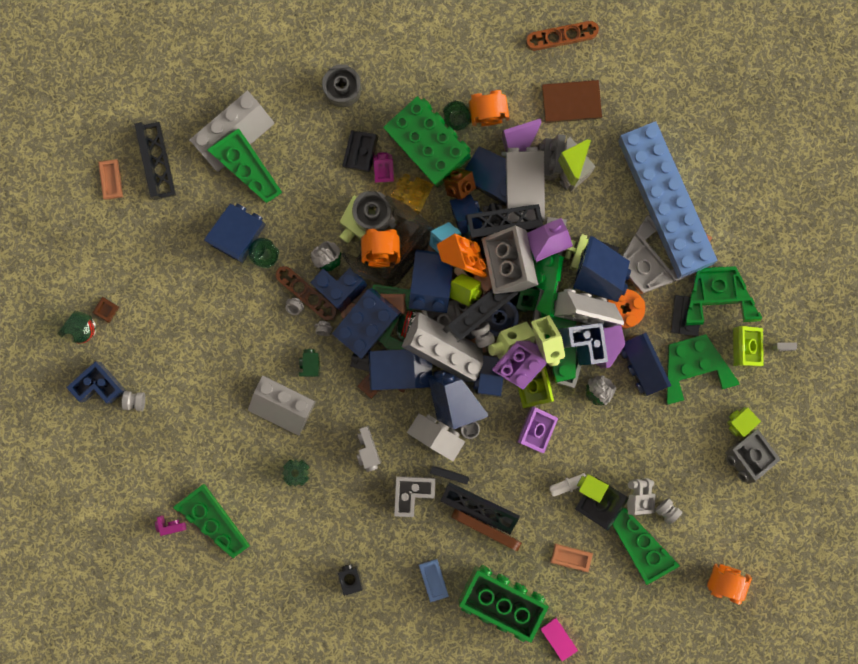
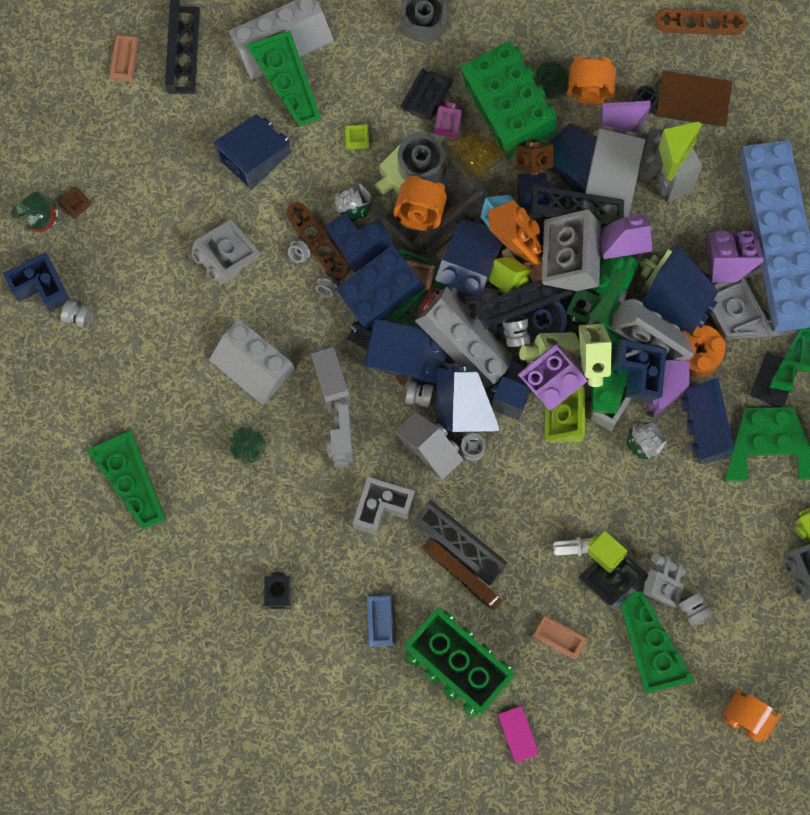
camera: 20 degrees right, 10 degrees down
(173, 526) = (80, 474): magenta bracket -> none
(236, 321) = (224, 252): none -> light grey plate
(263, 253) = (279, 180): clear green hair -> none
(309, 363) = (299, 323): dark green brick -> none
(314, 199) = (357, 136): none -> lime tile
(346, 403) = (330, 378): none -> light grey slope
(365, 387) = (363, 373): reddish brown tile -> none
(413, 397) = (414, 391): none -> light grey wheel
(449, 475) = (432, 494): black tile -> none
(531, 115) = (647, 91): none -> black wheel
(537, 429) = (555, 468): medium lavender slope -> none
(633, 226) = (732, 255): none -> medium lavender slope

